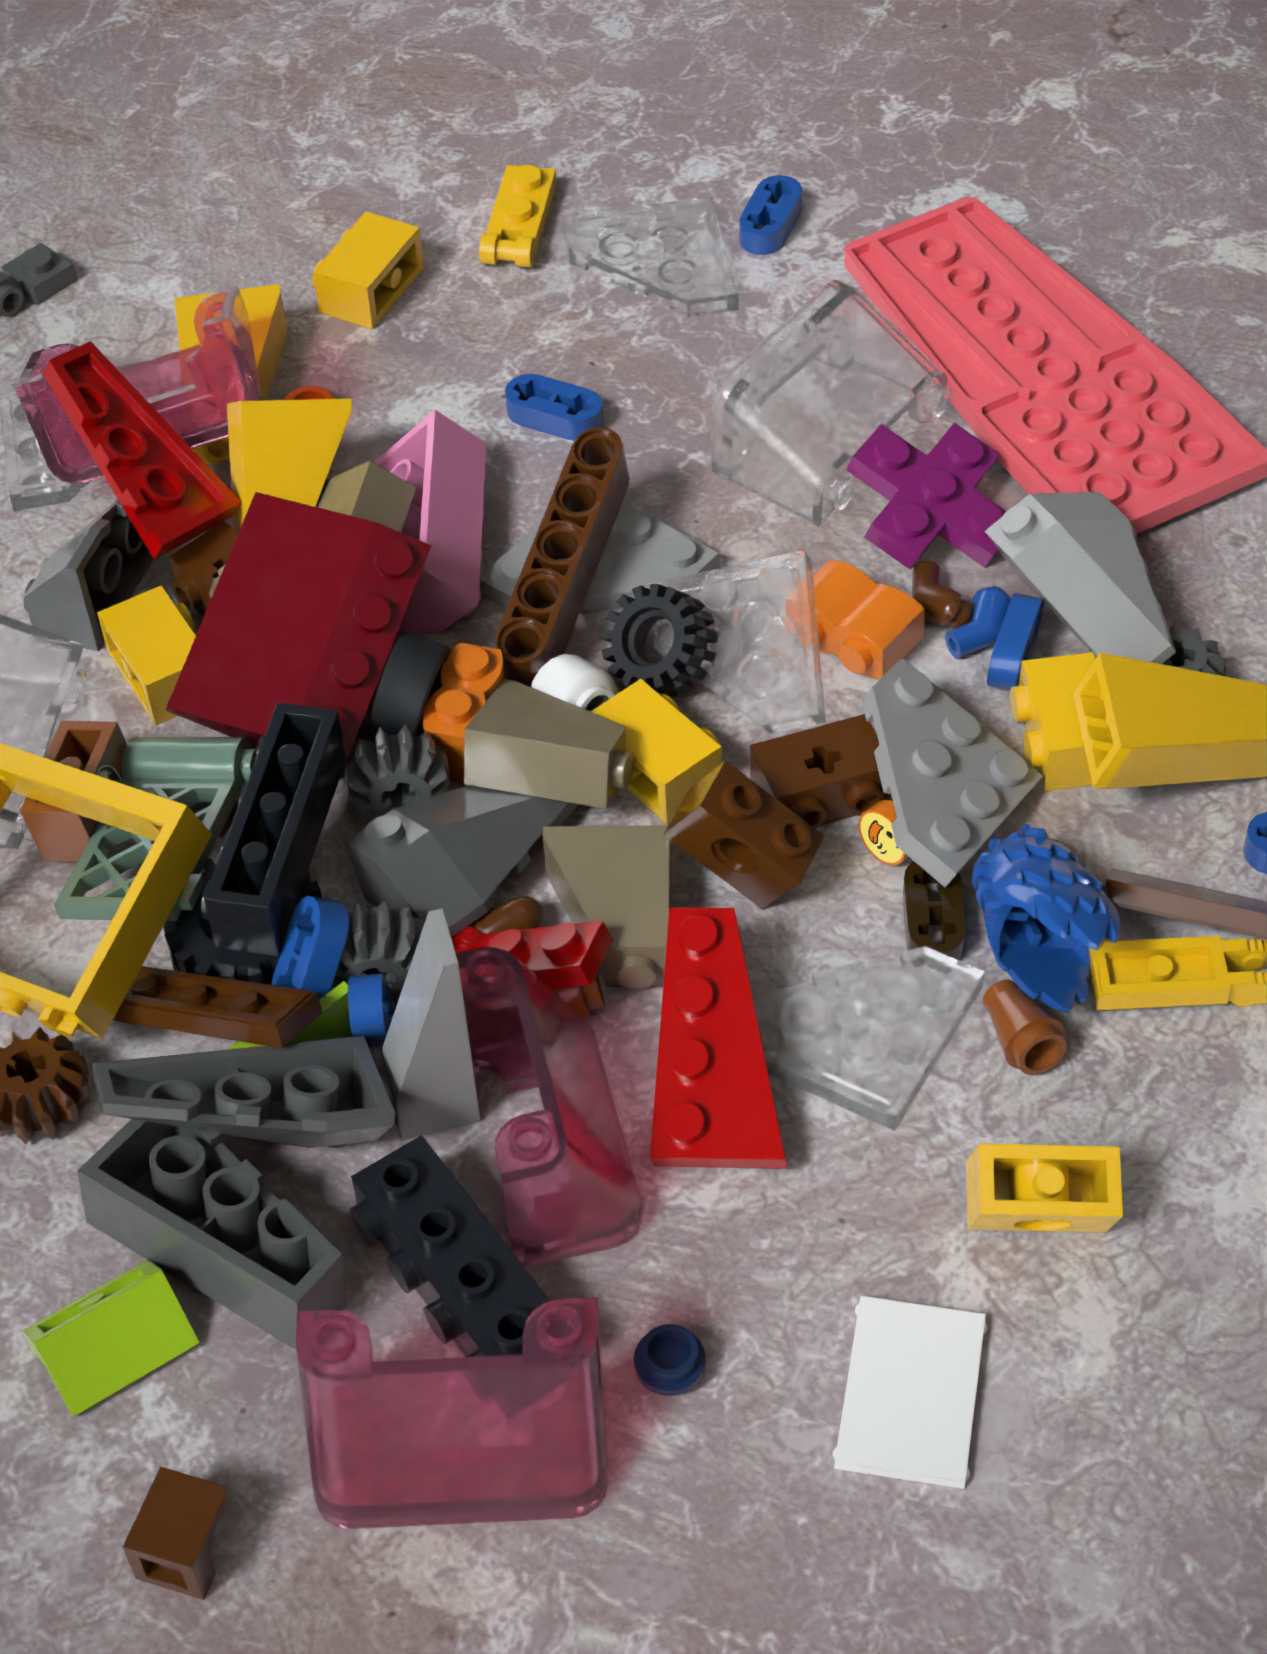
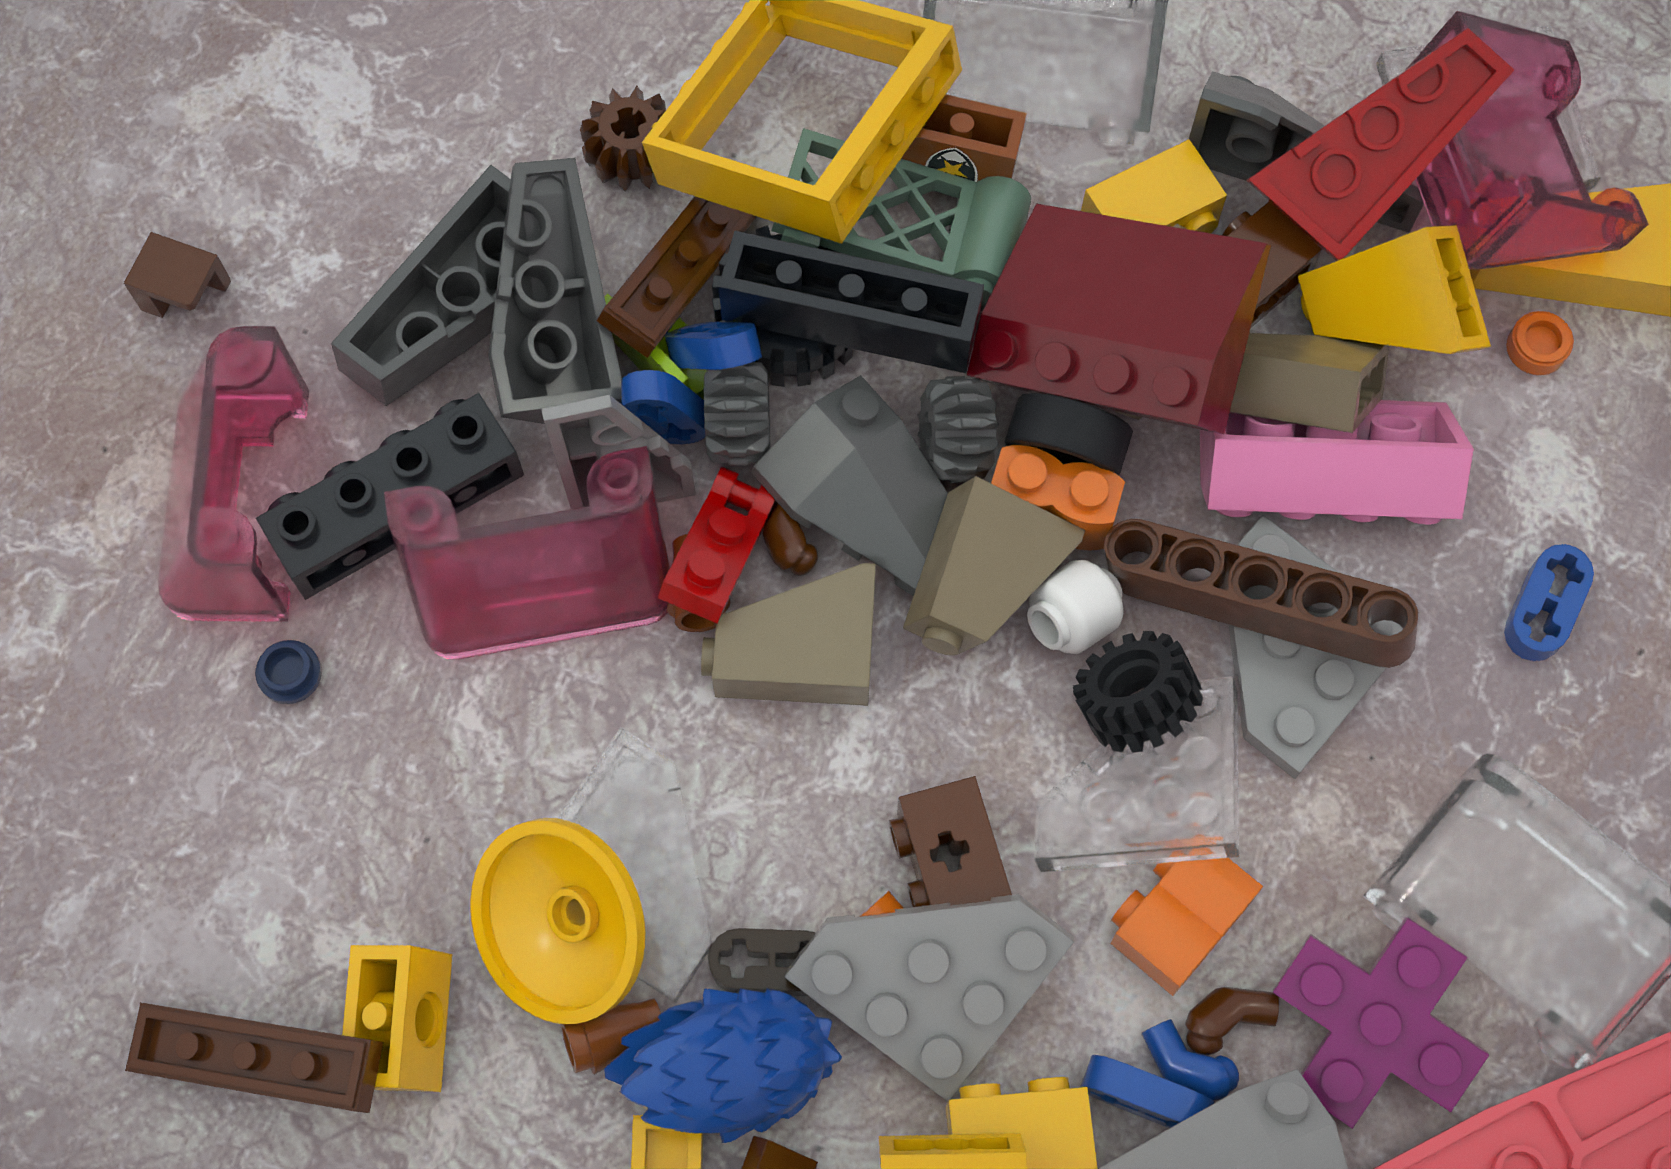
camera: 90 degrees right, 20 degrees up
(111, 1336) = (373, 215): lime panel -> none
(665, 745) = (1000, 687): yellow brick -> none
(711, 1063) = (596, 716): red wing -> none
(744, 835) = (847, 760): reddish brown brick -> none
(911, 1392) = (236, 884): white piece -> none
(965, 1023) = (557, 920): none -> yellow dish
(1103, 1312) = (255, 1057): none -> reddish brown tile

